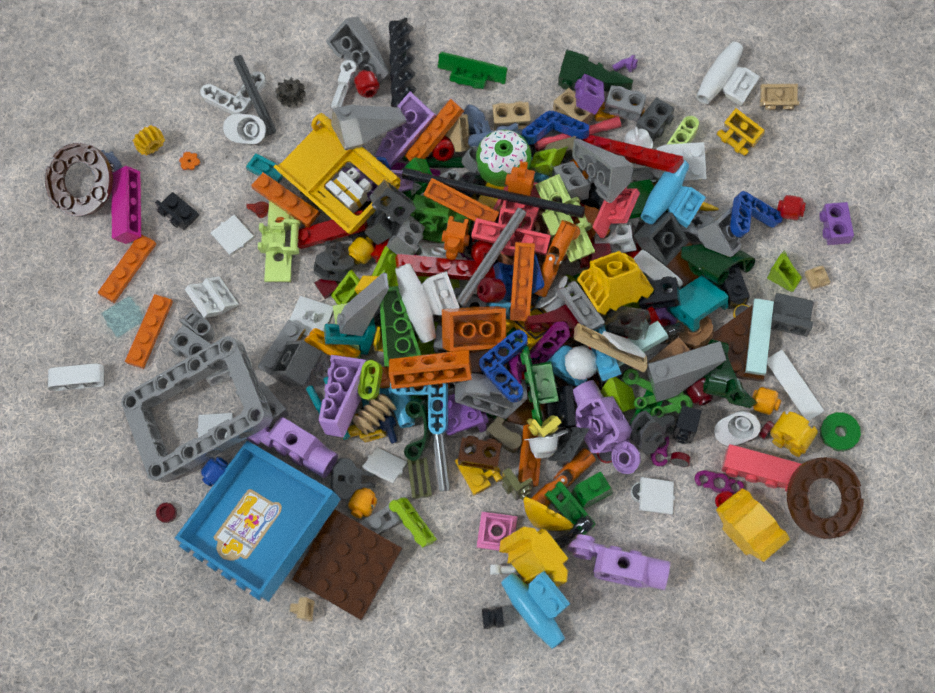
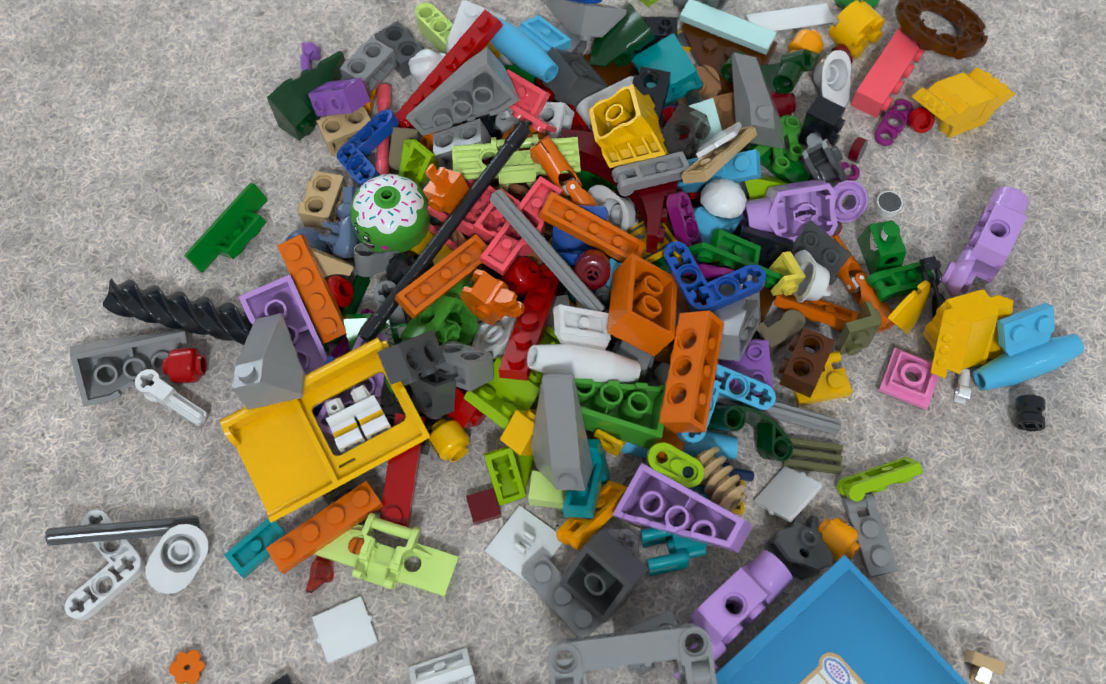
camera: 75 degrees left, 5 degrees down
(290, 92) = (156, 475): clear smoke gear -> none
(334, 262) = (453, 482): dark grey hinge -> none
(347, 564) = (932, 577): reddish brown plate -> none
(656, 496) = (899, 187): white piece -> none

